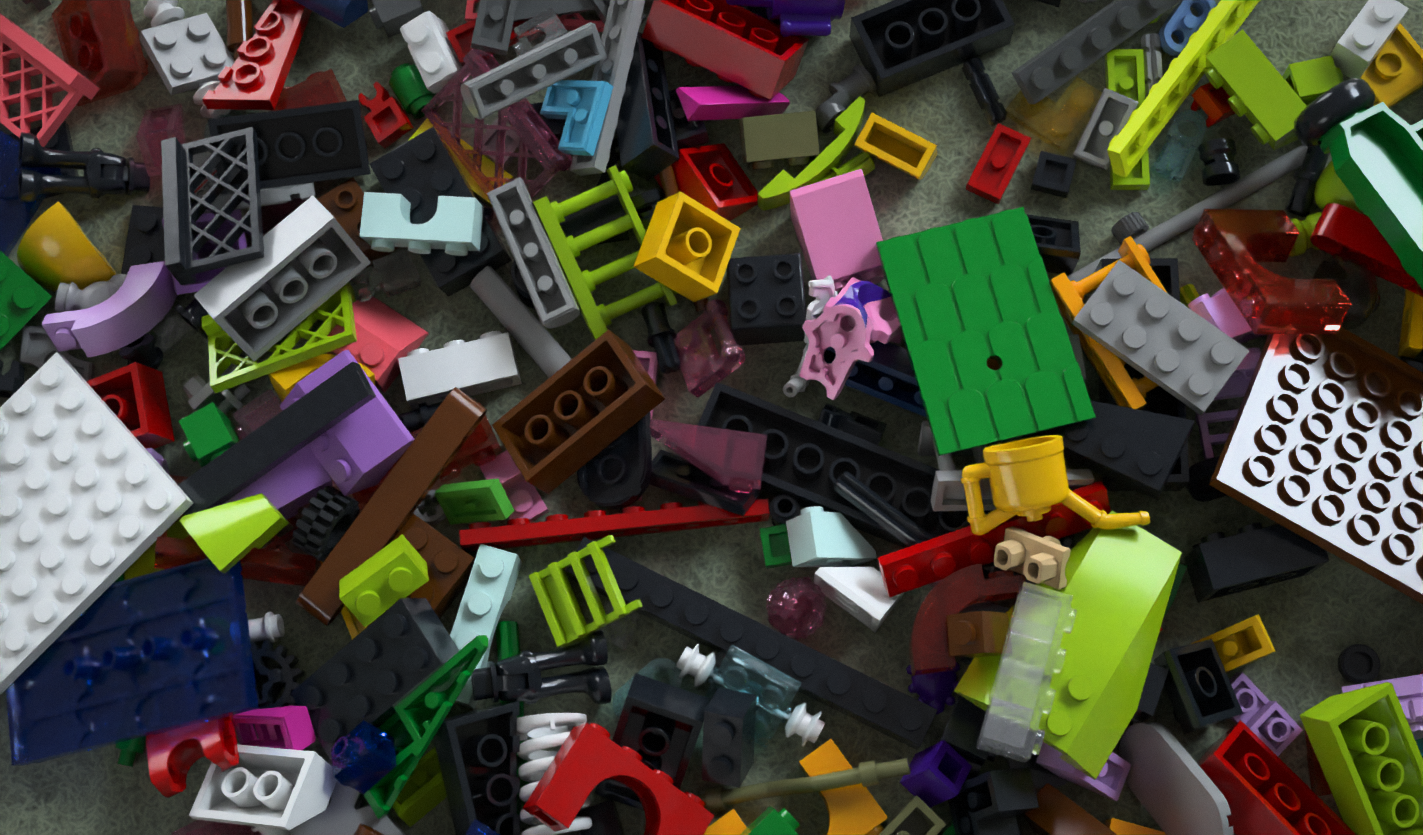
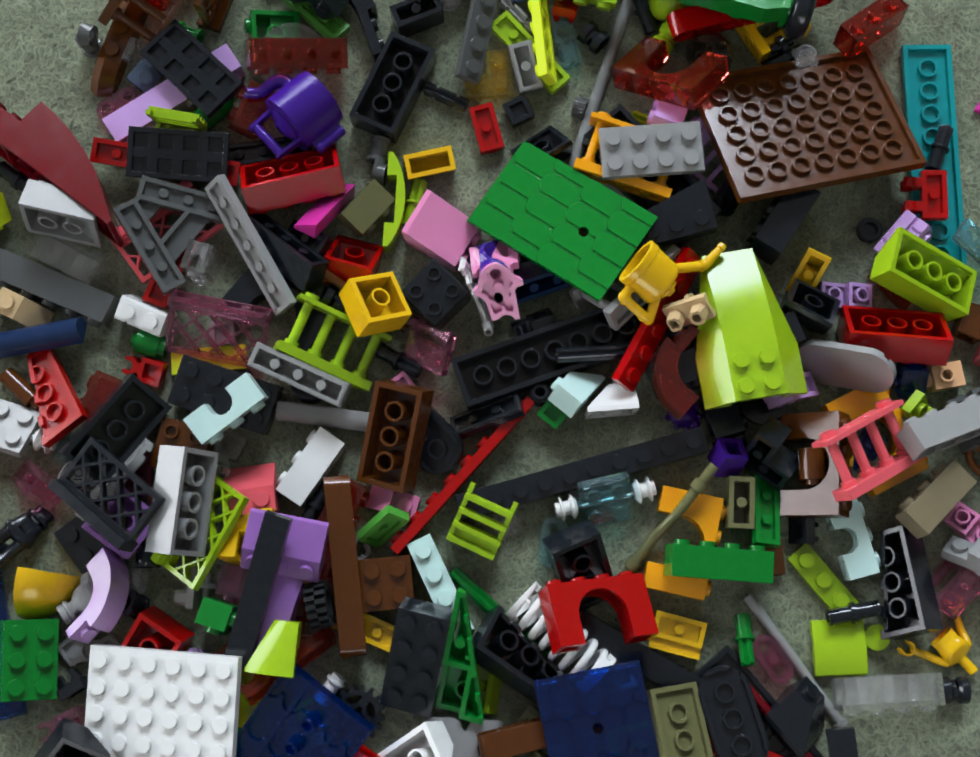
camera: 45 degrees left, 5 degrees up
(276, 727) = (390, 728): dark pink slope -> none
(363, 757) = (448, 702): clear blue brick -> none
(383, 580) = (378, 607): lime brick -> none
(520, 675) = (487, 591): black piece -> none
(533, 71) = (213, 281): light grey brick -> none
(584, 109) = (255, 277): medium azure tile -> none
(724, 454) = (489, 393): clear pink slope -> none
(728, 737) = (615, 528): black brick -> none
(796, 607) = (589, 436): clear pink piece -> none
(977, 633) = (697, 372): reddish brown brick -> none
(1025, 673) = (739, 371): clear brick -> none

